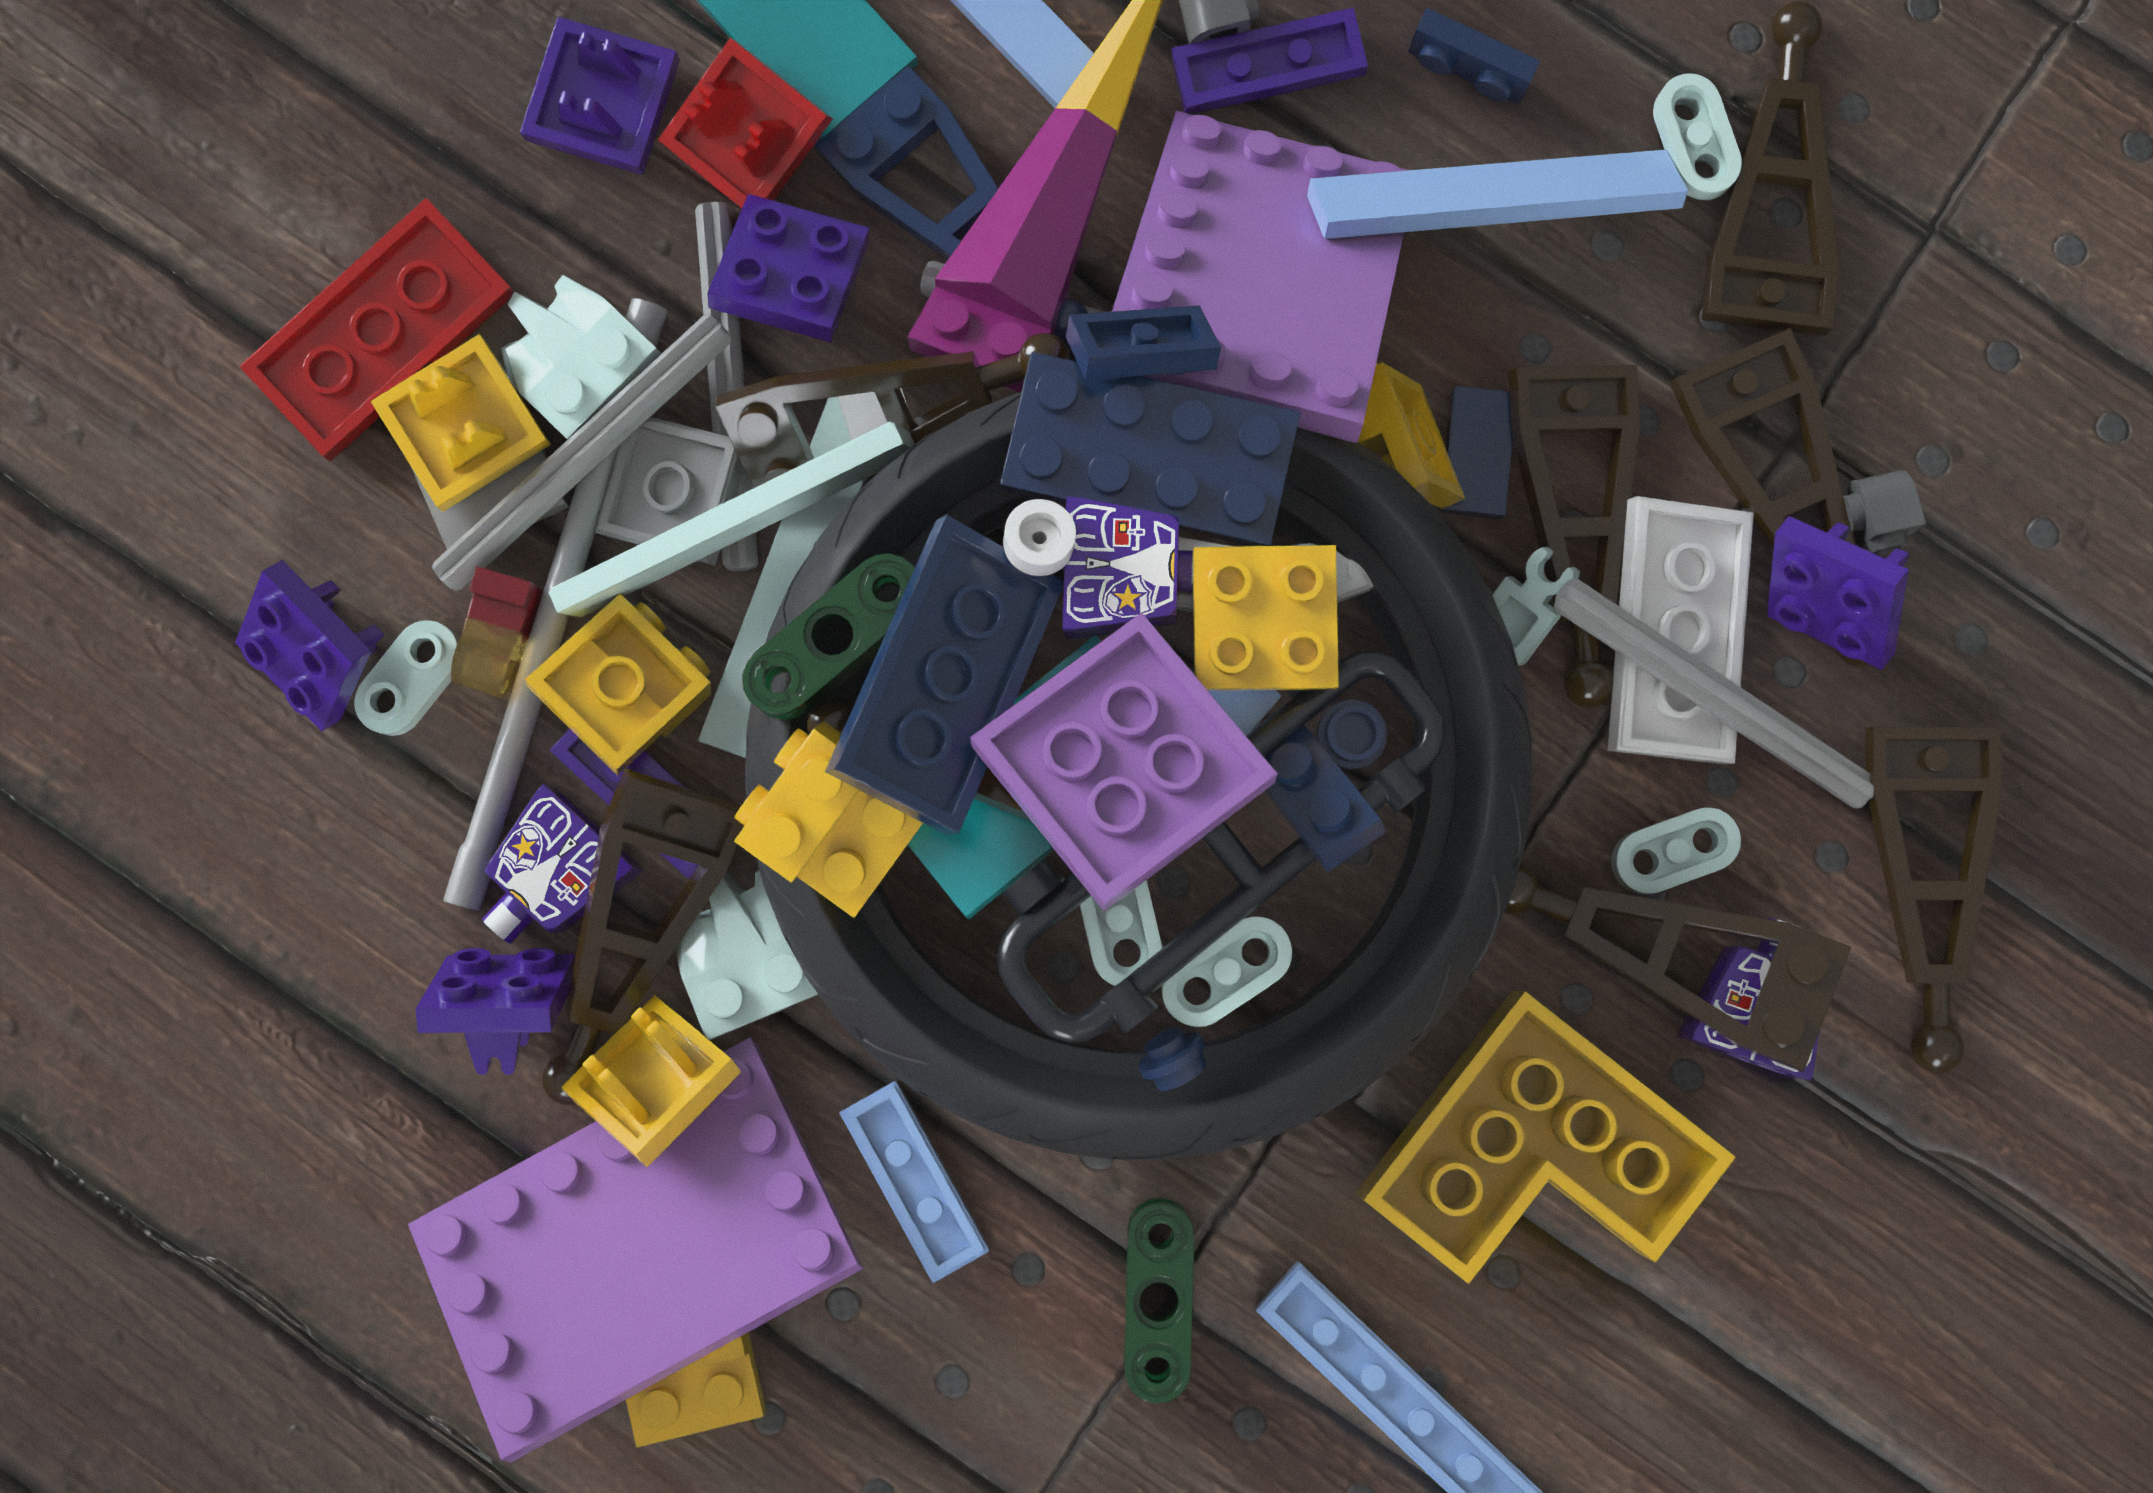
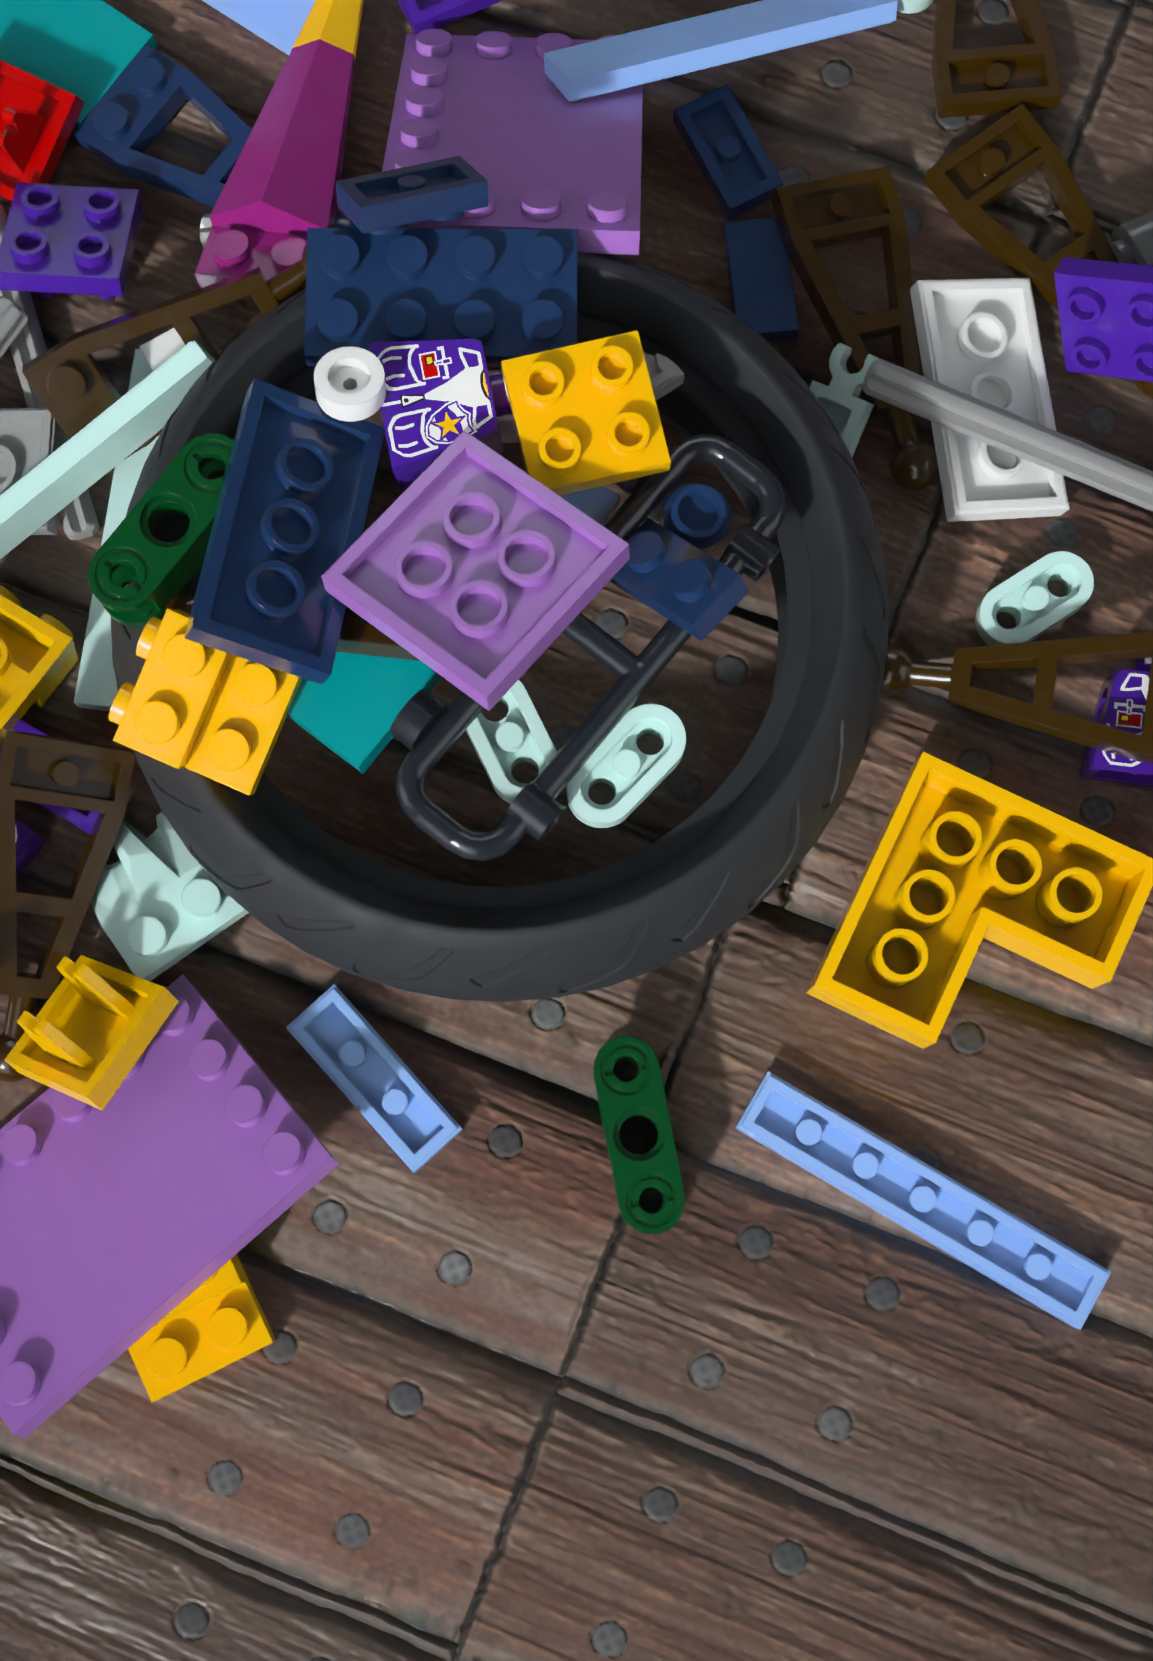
camera: 15 degrees left, 5 degrees down
(1173, 1058) = (592, 860): dark blue plate -> none
(1406, 434) = (678, 252): yellow plate -> none
(1476, 310) = (727, 151): none -> dark blue plate

